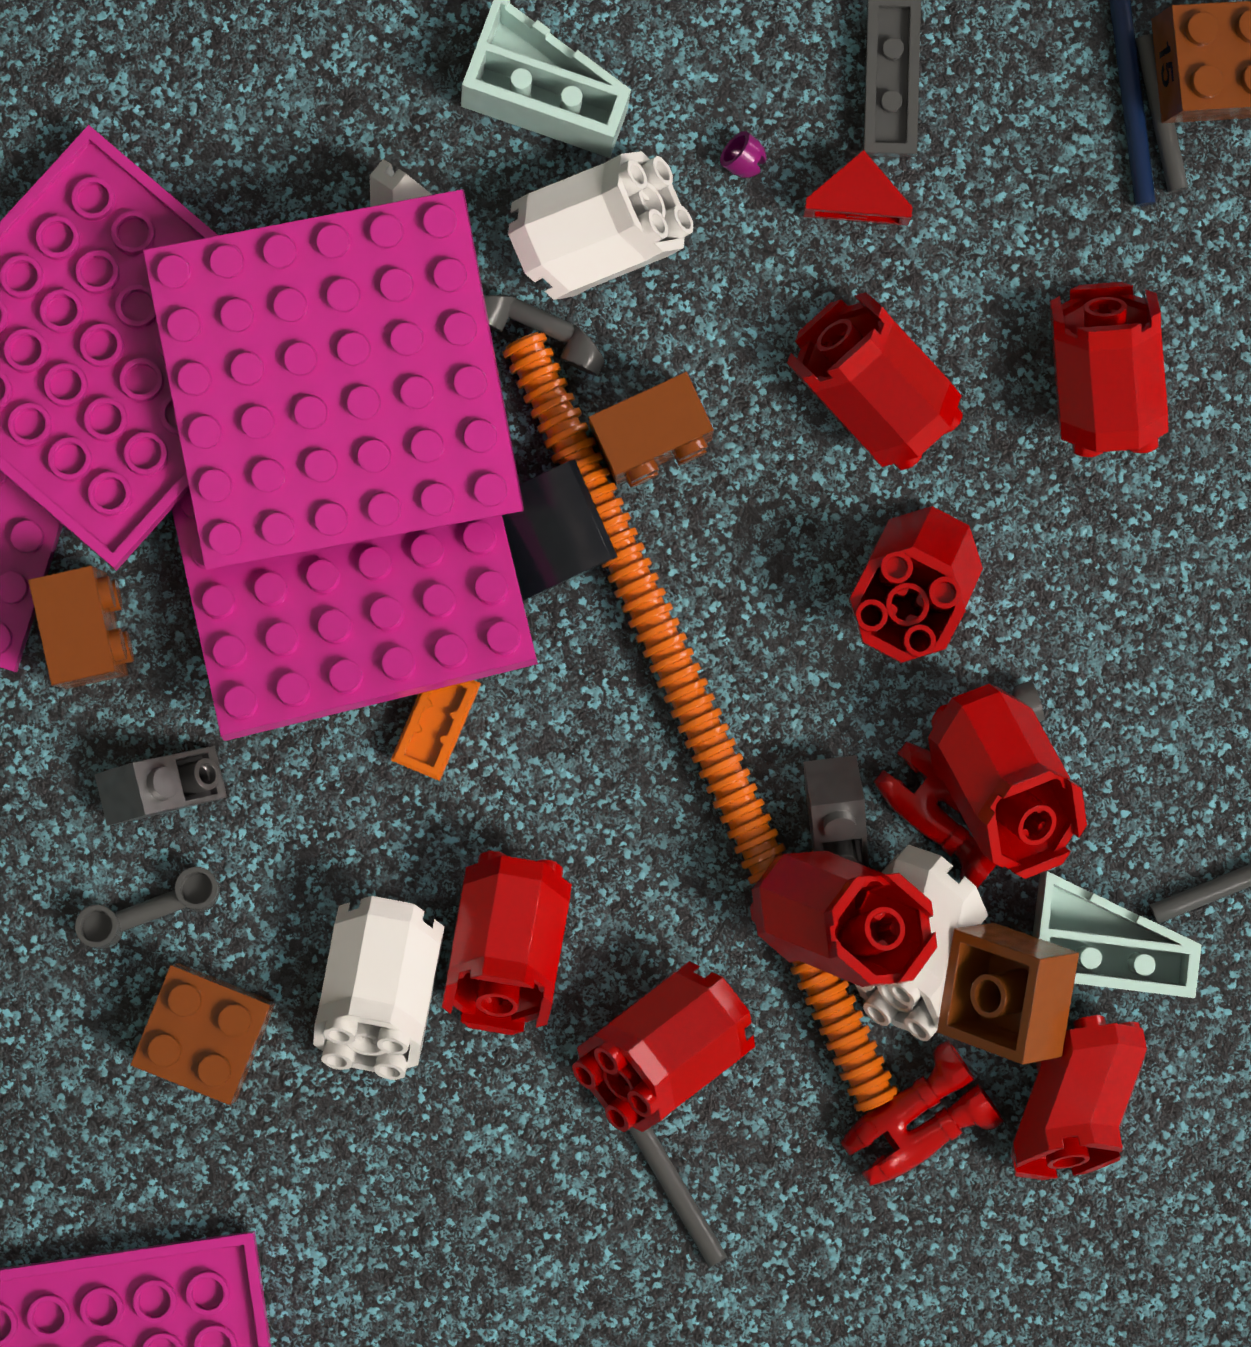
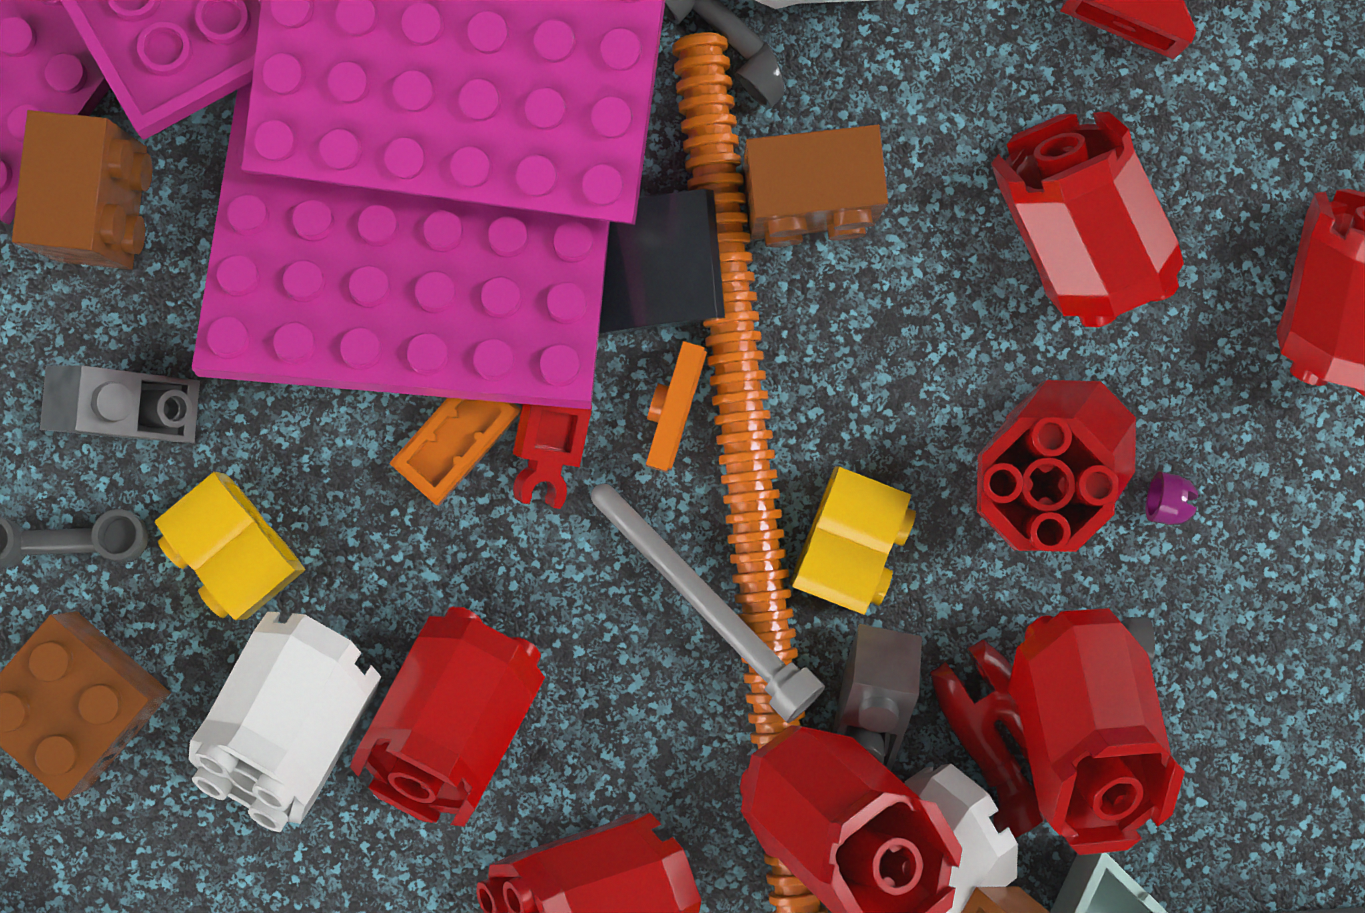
camera: 15 degrees right, 0 degrees up
(285, 869) = (227, 547): none -> yellow brick
(510, 700) = (549, 440): none -> red plate
(599, 640) = (672, 405): none -> orange plate
(763, 827) = (788, 686): none -> light grey piece
(777, 698) = (852, 541): none -> yellow brick
(1016, 582) = (1168, 499): none -> magenta hinge

